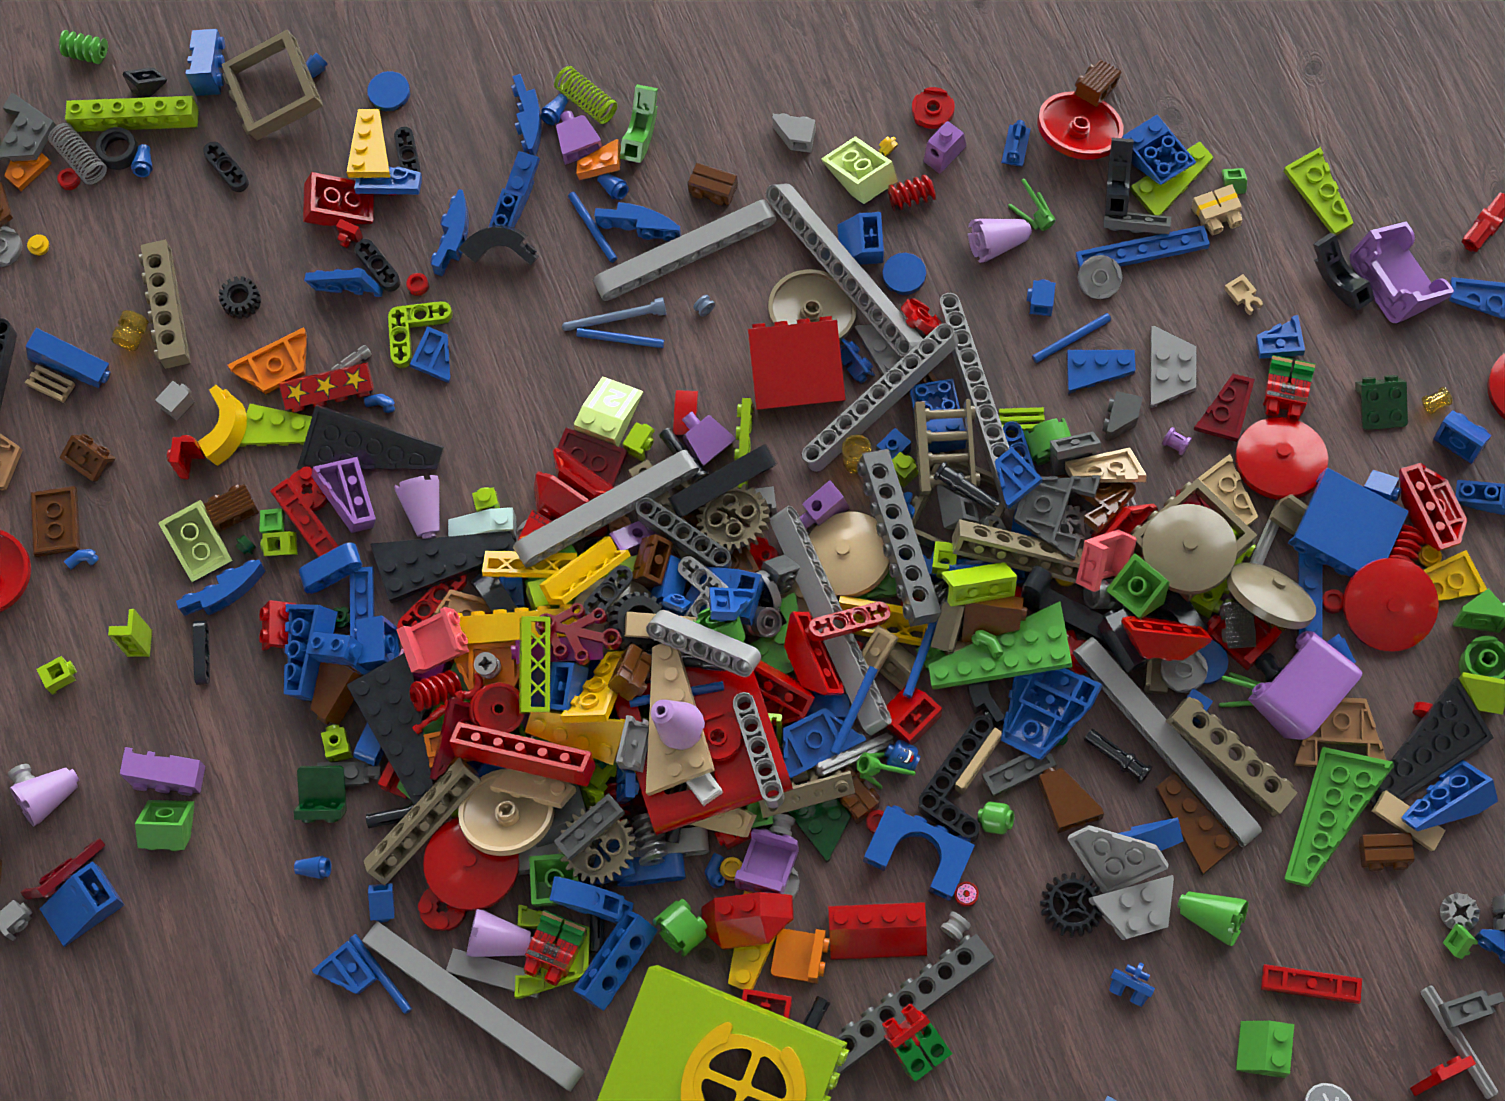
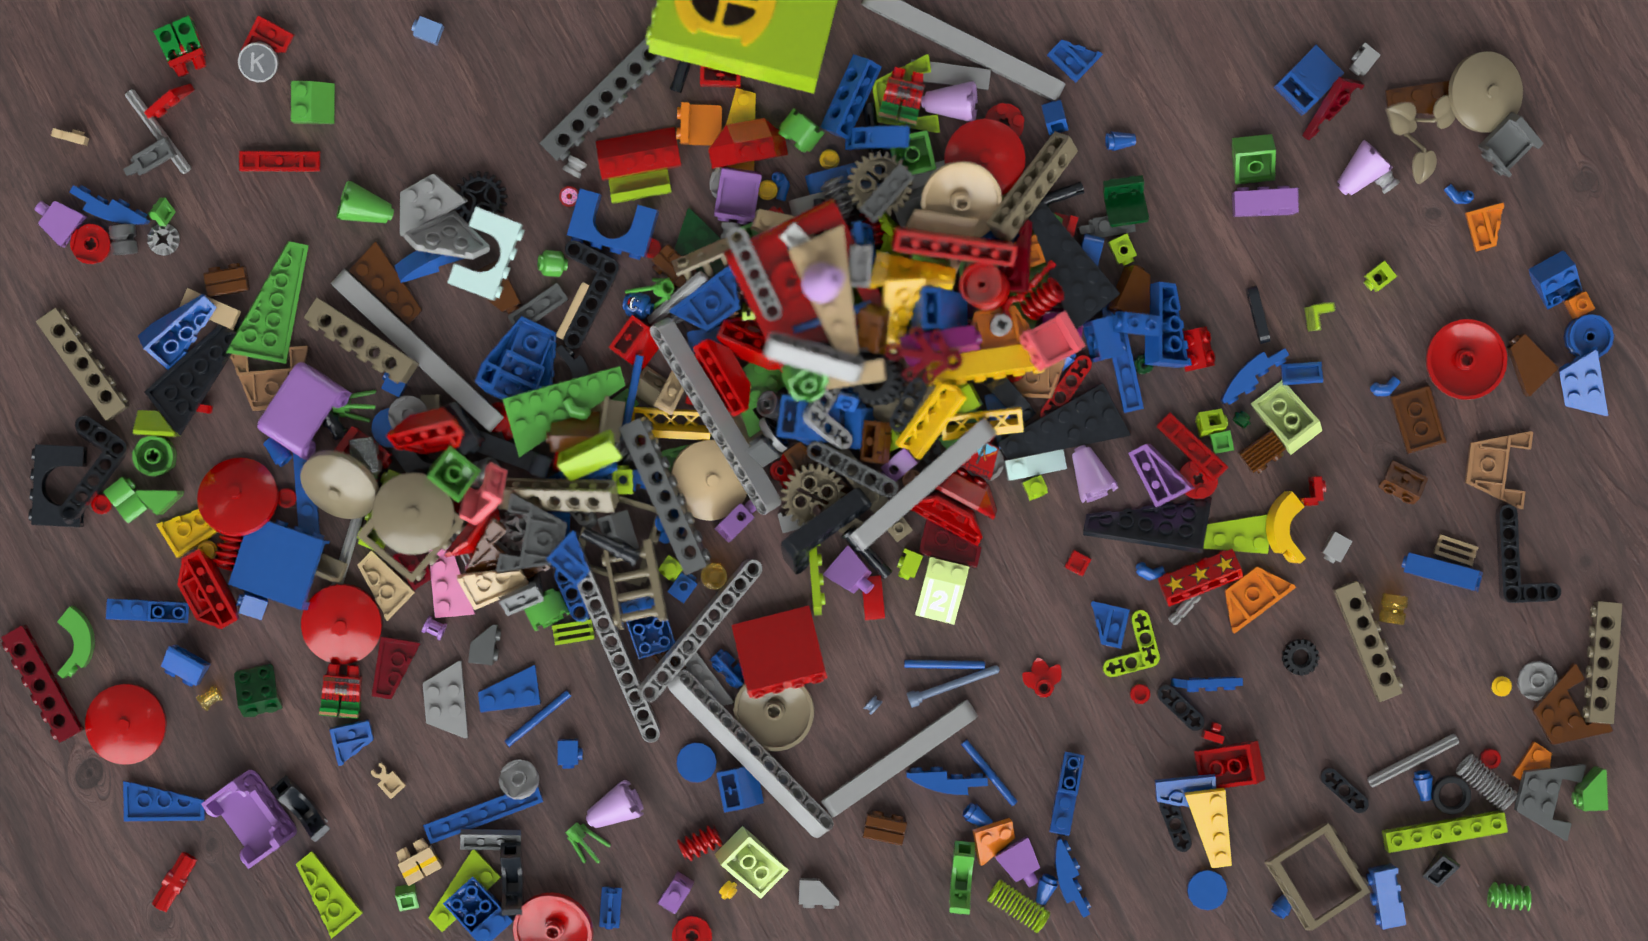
camera: 160 degrees right, 20 degrees up
(147, 186) = (1413, 760): none -> light grey axle
(167, 584) = (1302, 373): none -> blue tile
(330, 568) = (1160, 405): blue beam -> none
(380, 974) = (1045, 60): blue bar -> none
(455, 230) = (1115, 755): blue slope -> none
(456, 421) = (1077, 563): none -> red tile
(498, 235) = (1072, 744): black arch -> none
(517, 315) = (1041, 674): none -> red plate
(525, 664) = (963, 318): lime fence -> none
(653, 894) = (829, 159): none -> yellow plate
(728, 602) = (799, 399): blue wing -> none
(847, 619) = (698, 411): red beam -> none
(854, 710) = (681, 331): blue bar -> none
(881, 890) = (640, 186): none -> lime panel
(909, 1036) = (599, 67): hips -> none
(918, 316) = (675, 714): red plate -> none
(1074, 798) = (506, 233): none -> light aqua arch
(1121, 979) = (424, 142): blue hips -> none
(1126, 761) = (447, 327): black pin -> none
(1159, 476) = (447, 592): none -> bright pink wing

